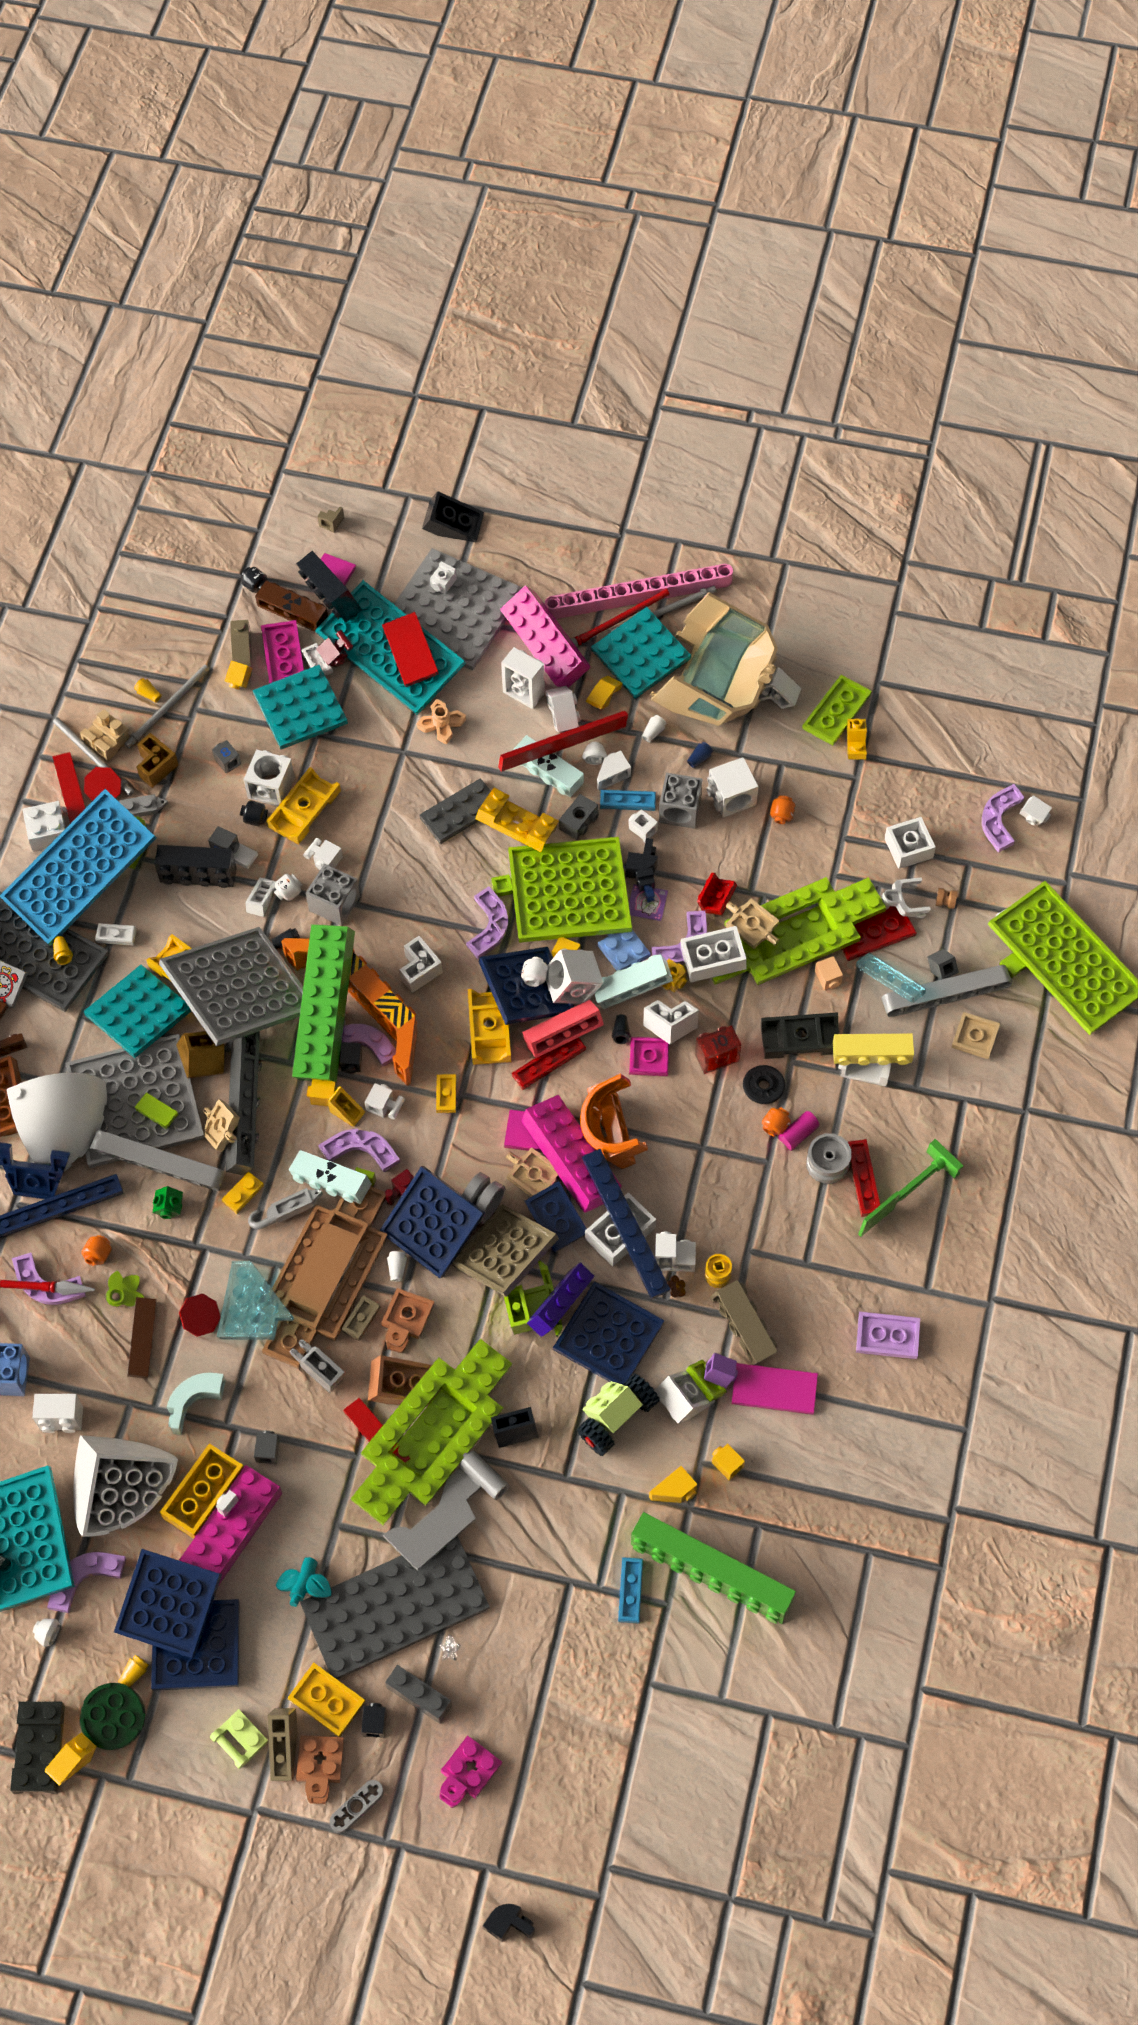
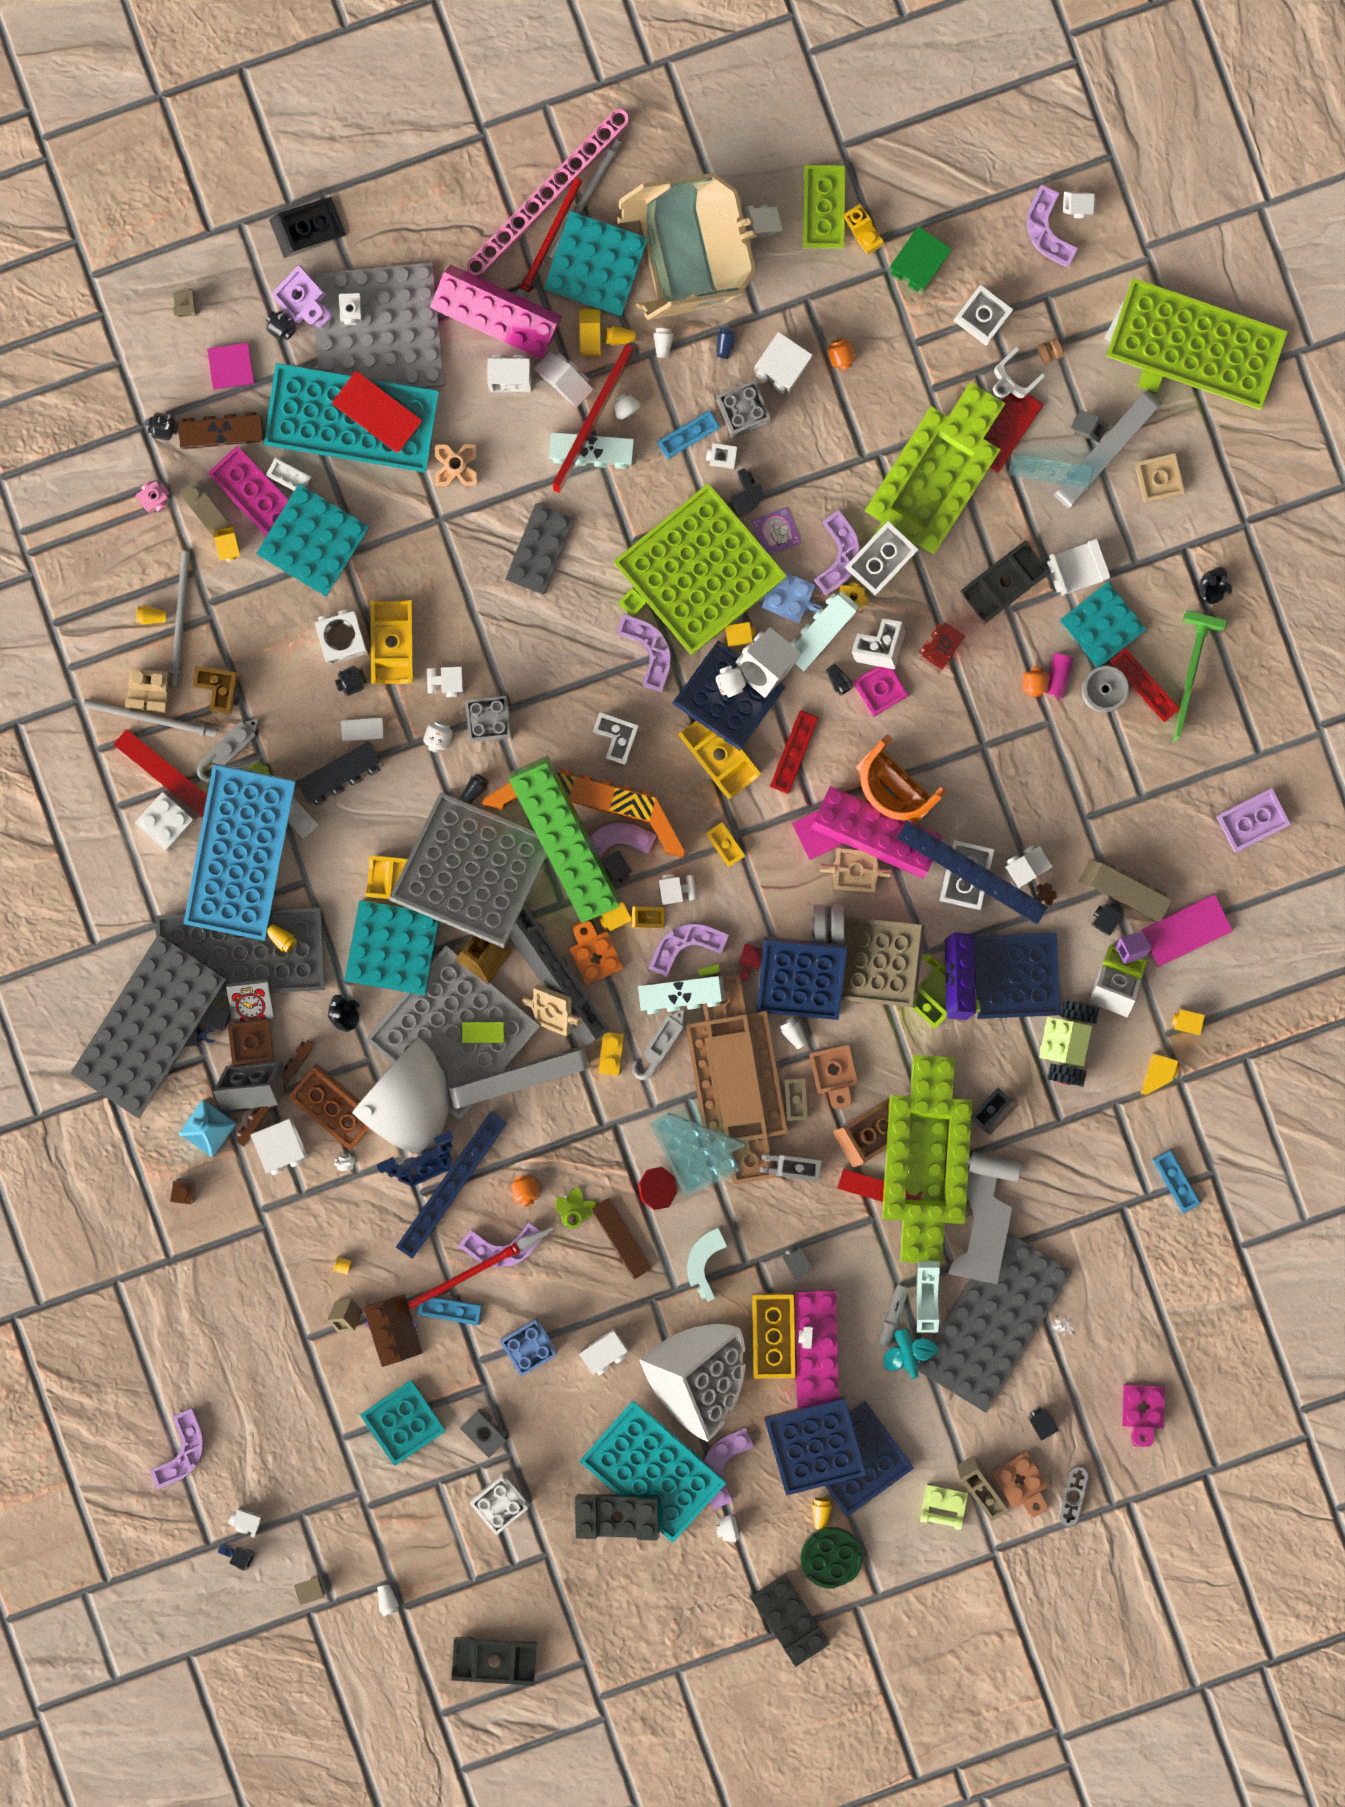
camera: 35 degrees left, 25 degrees up
(63, 1033) = (343, 1013): none -> black hair
(71, 1759) = (826, 1613): yellow slope -> none
(100, 779) = (186, 745): red piece -> none
(115, 934) = (313, 885): white plate -> none
(143, 882) = (301, 820): none -> white plate
(167, 1202) = (556, 1109): green brick -> none
(211, 617) = (148, 491): none -> bright pink brick
(224, 839) = (348, 731): dark grey brick -> none
(226, 756) = (278, 637): dark grey brick -> none
(256, 906) = (423, 775): white slope -> none
(289, 1100) = (592, 943): none -> orange plate
(313, 1544) = (893, 1315): none -> light grey pin
(326, 1699) = (992, 1431): yellow plate -> none
(328, 587) = (251, 397): black brick -> none
(333, 650) = (302, 457): brick -> none
(354, 1544) = (927, 1296): none -> light aqua arch
(386, 565) = (281, 325): none -> black head
(414, 562) = (309, 304): none -> lavender plate
(418, 1694) = (1063, 1379): dark grey brick -> none
(500, 814) = (626, 529): yellow piece -> none
(504, 1918) = (1247, 1501): black brick -> none
(556, 1212) = (902, 898): dark blue plate -> none
(563, 1028) = (788, 715): coral brick -> none
(580, 807) = (654, 473): dark grey brick -> none
(613, 770) = (655, 412): white slope -> none
(620, 704) = (617, 335): none -> yellow cone
(646, 883) = (764, 513): black piece -> none
(712, 1568) = (1235, 1123): bright green brick -> none
(713, 1336) = (1107, 918): none -> black brick
(716, 894) = (837, 485): red bracket -> none
(718, 1270) = (1074, 857): yellow wheel -> none
(753, 923) = (895, 502): tan plate -> none
(763, 1073) = (1013, 647): black wheel -> none
(829, 973) = (991, 501): light nougat brick -> none
(860, 1113) = (1102, 625): none -> teal plate
(873, 1048) = (1082, 559): light yellow brick -> none
(886, 782) = (919, 260): none -> green brick
(969, 1136) = (1213, 585): none -> black hair

